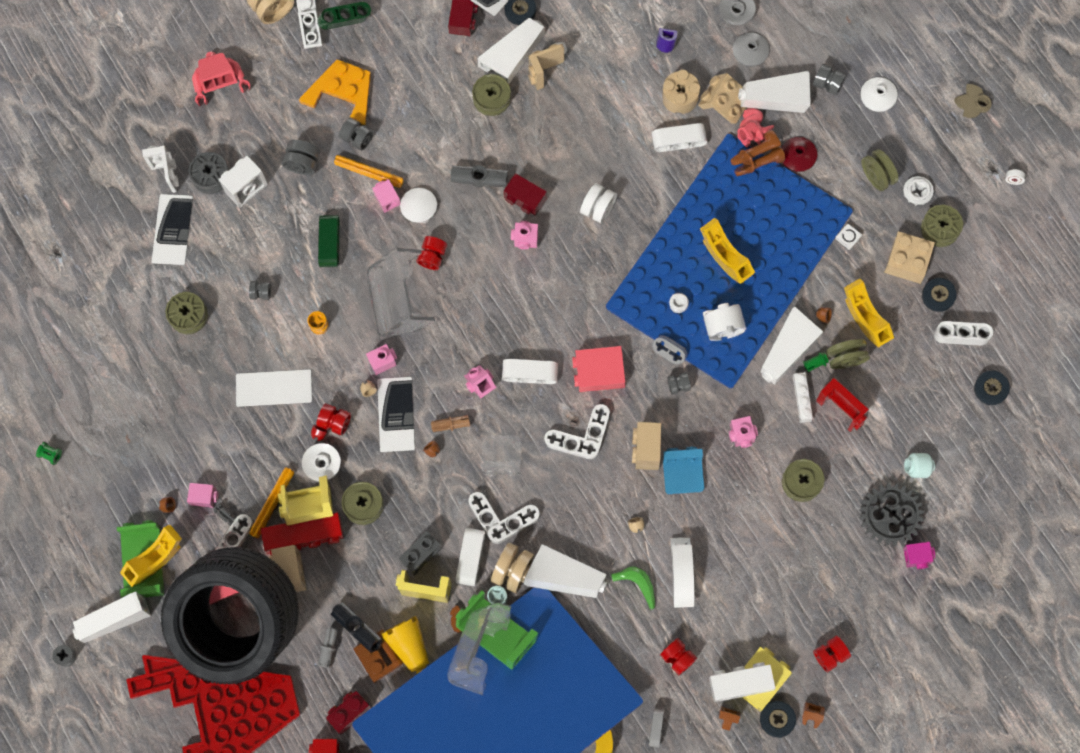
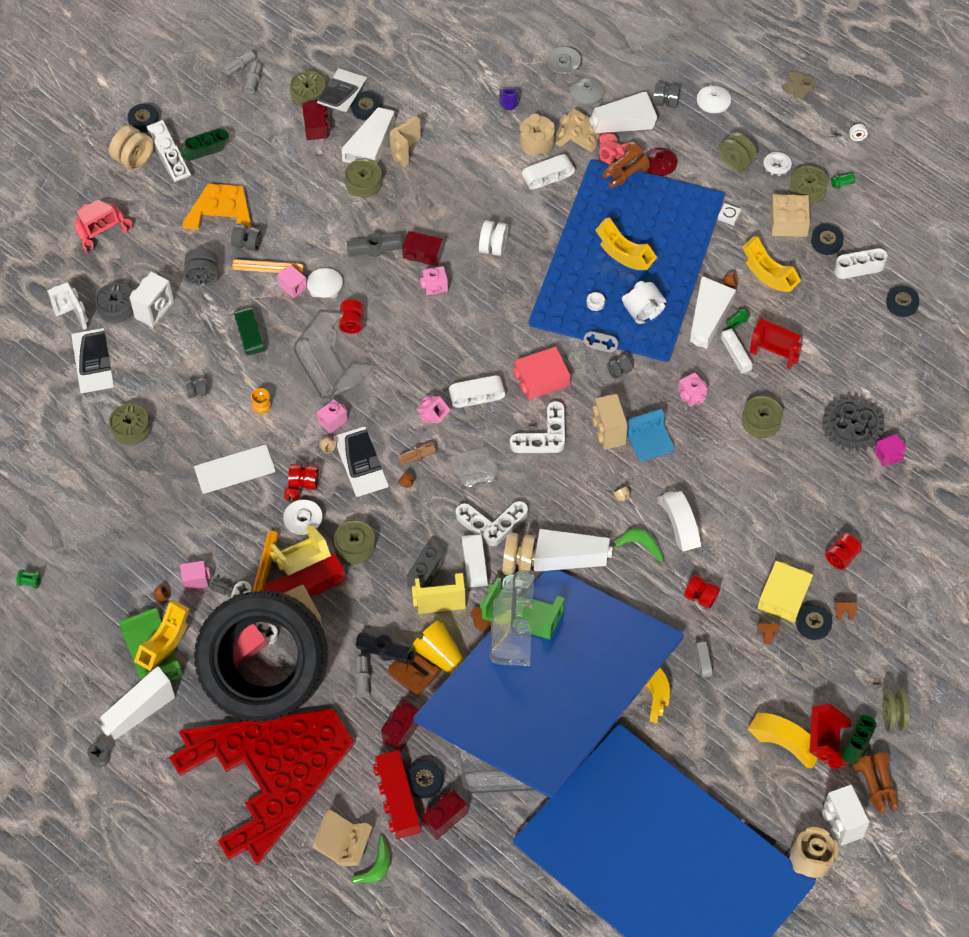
camera: 20 degrees left, 15 degrees down
(742, 682) = (770, 592): white brick -> none
(848, 354) = (765, 302): olive wheel -> none
(919, 465) = (862, 377): light aqua head -> none
(979, 229) = (843, 180): none -> green pin

